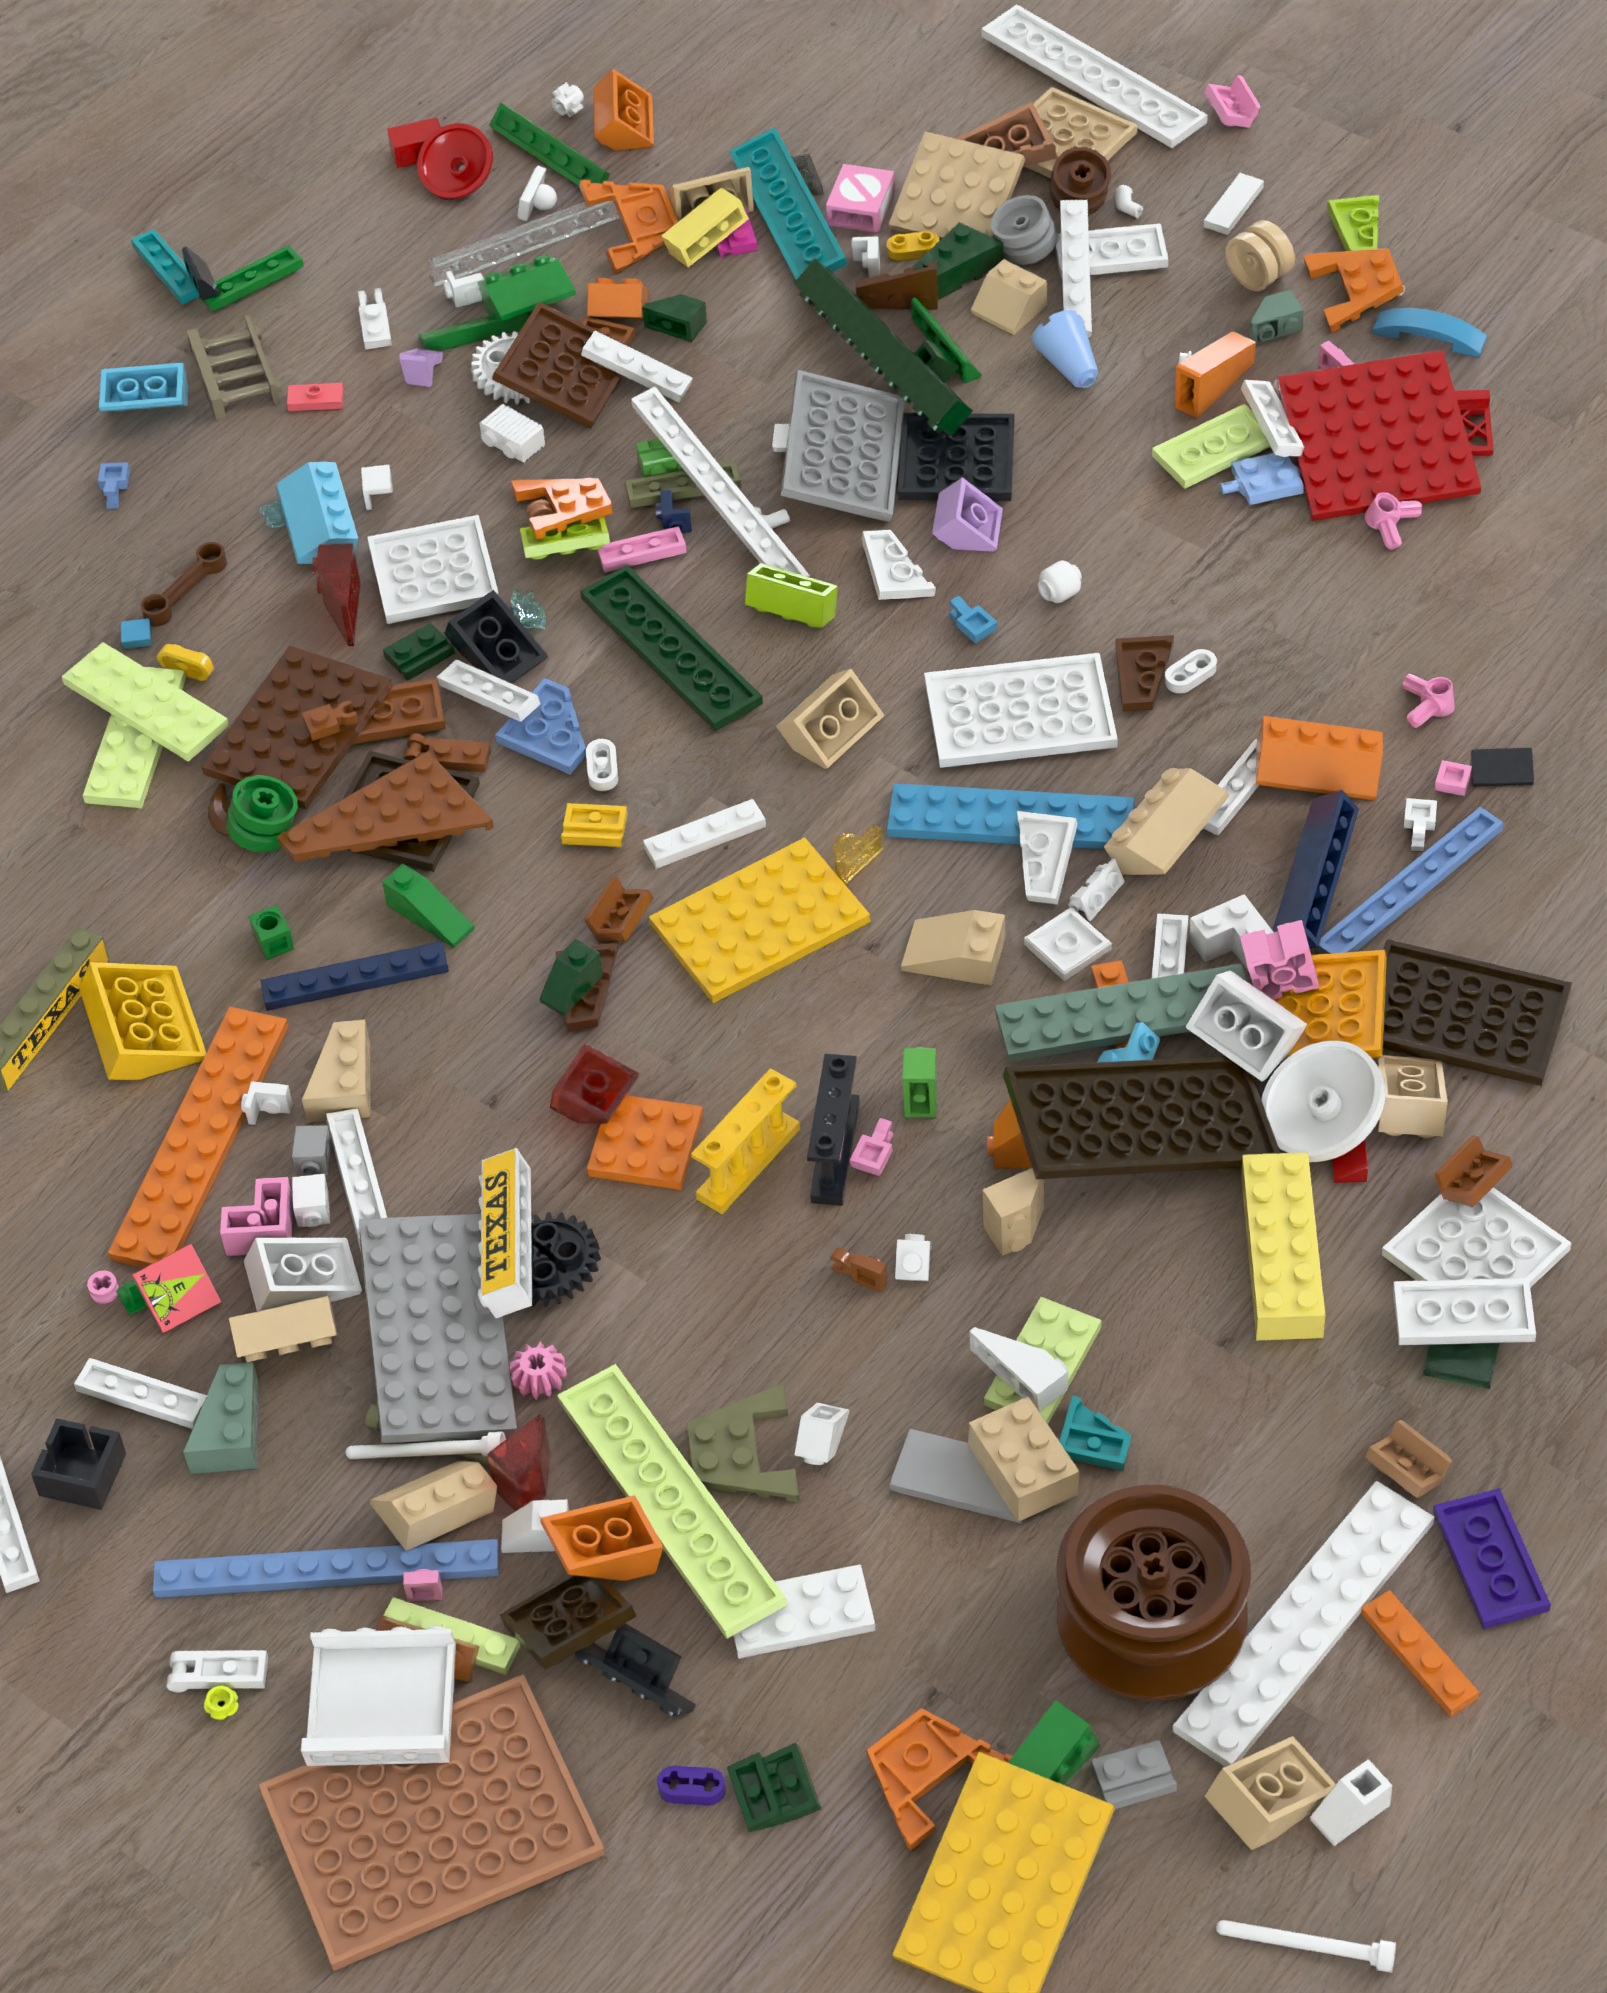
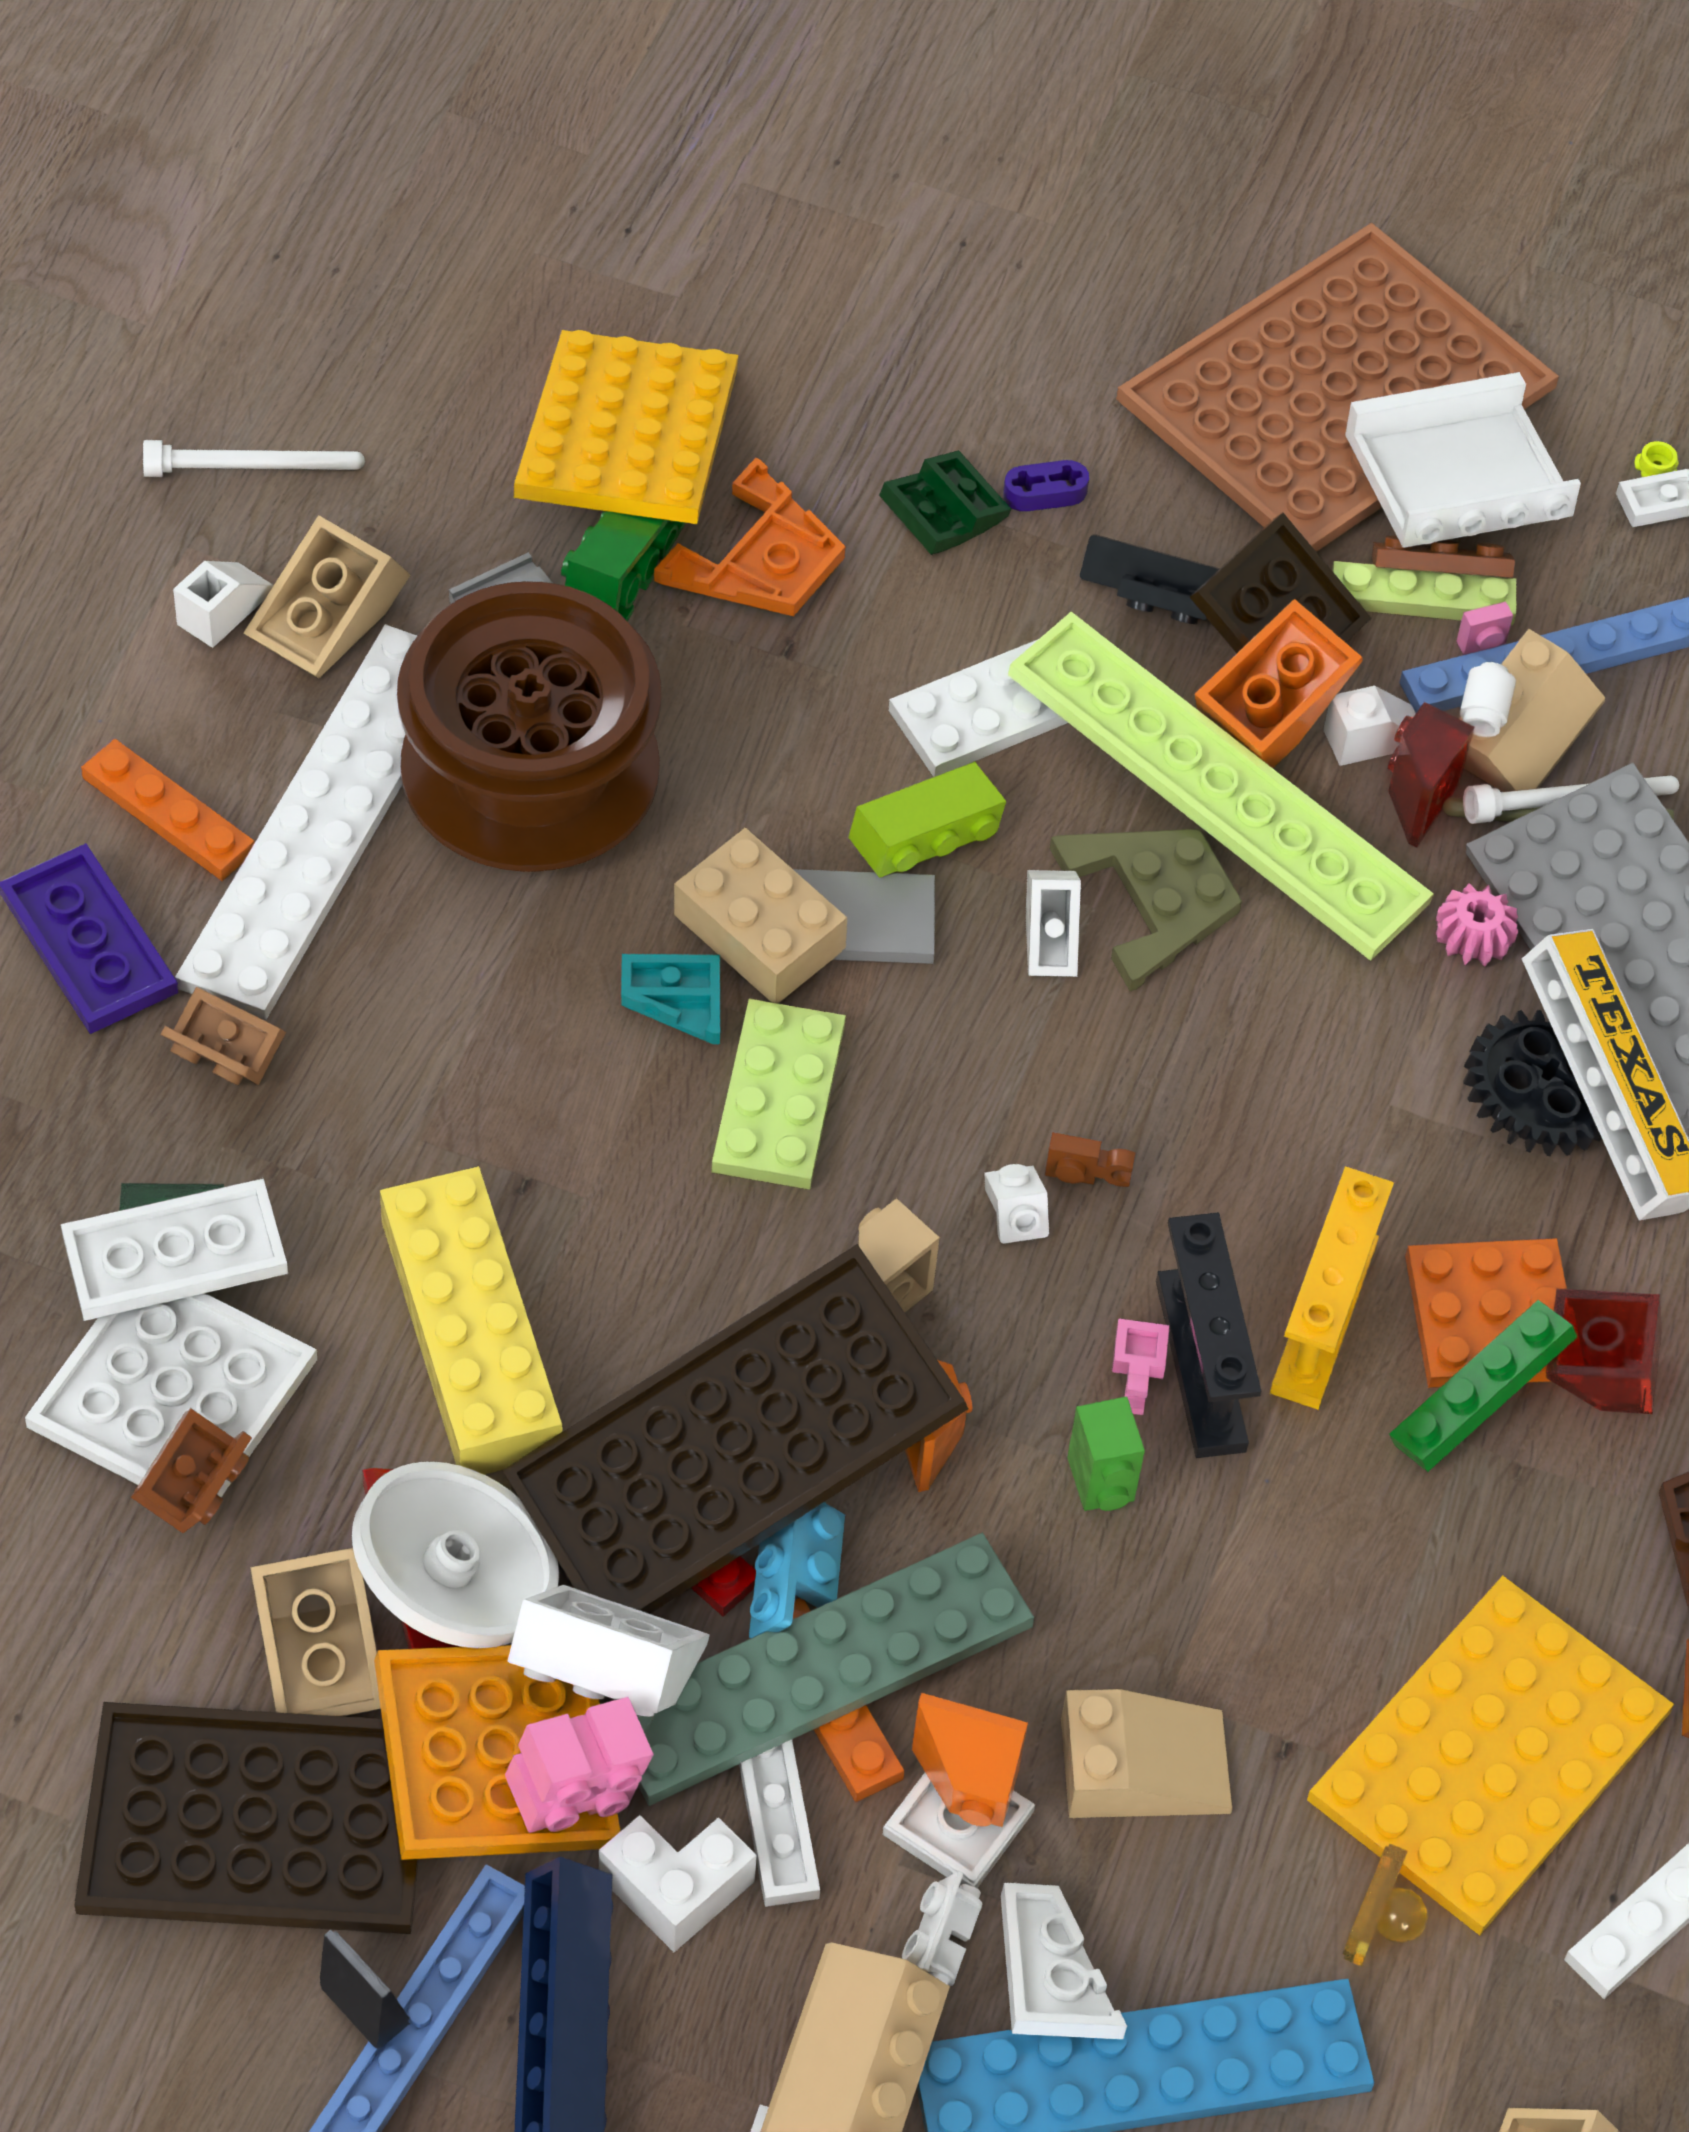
camera: 155 degrees right, 5 degrees up
(468, 1470) = (1487, 698): none -> white brick
(677, 1082) = (1483, 1385): none -> green plate
(882, 1512) = (927, 819): none -> lime brick
(1021, 1366) = (801, 1031): white slope -> none
(1055, 941) = (969, 1757): none -> orange slope
(1417, 911) = (360, 1992): none -> black slope

